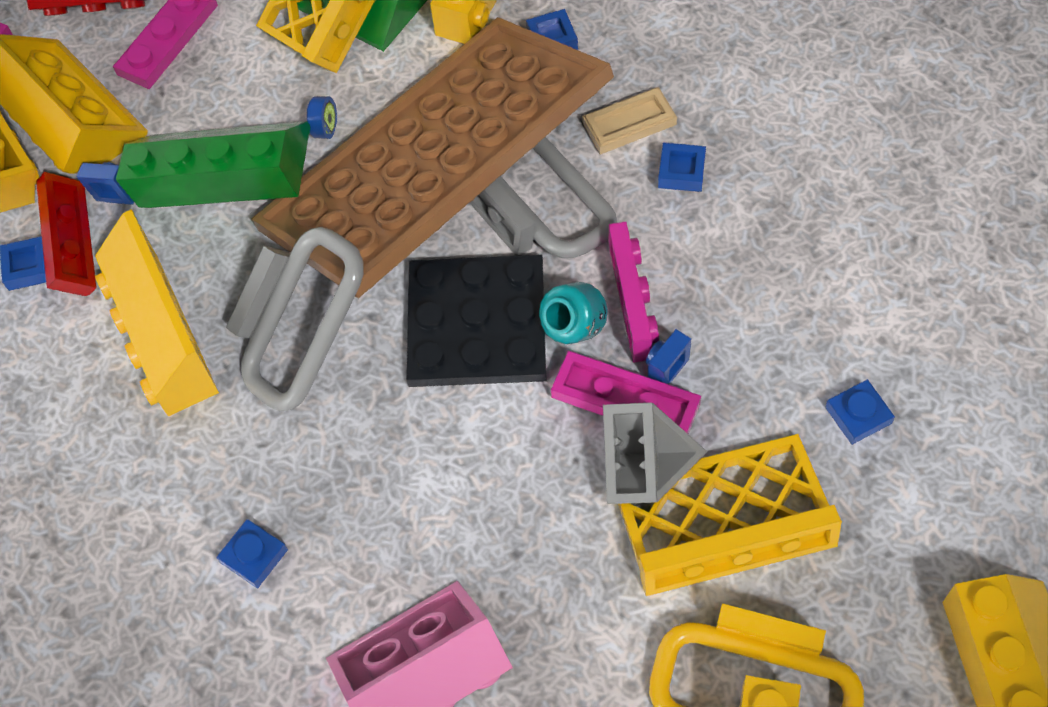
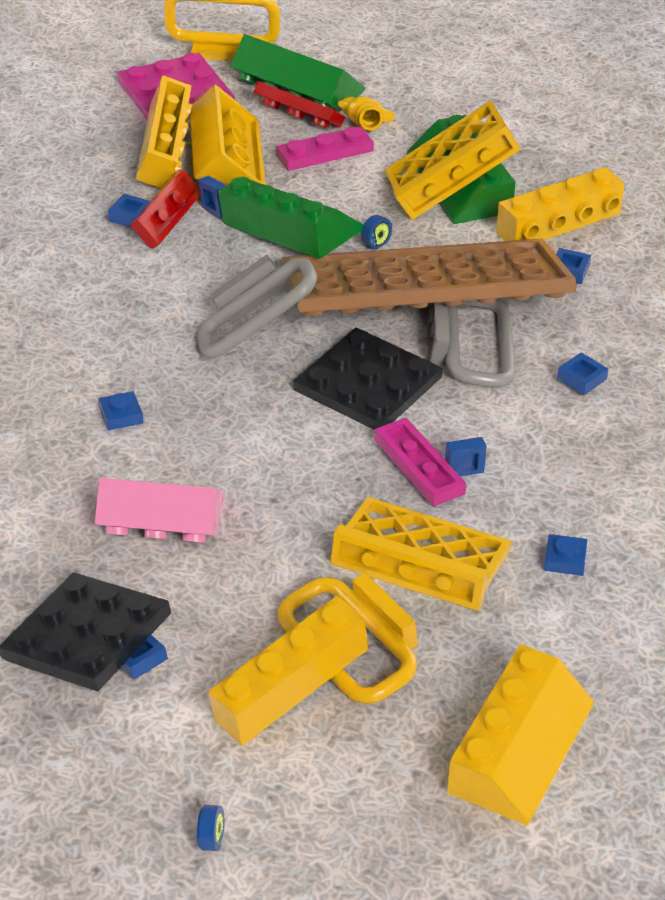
camera: 30 degrees right, 20 degrees down
(152, 318) = (175, 270): yellow slope -> none
(573, 312) = (427, 399): teal head -> none
(629, 120) = (576, 336): tan tile -> none
(632, 291) = (481, 407): dark pink plate -> none
(644, 453) = (398, 483): light grey slope -> none

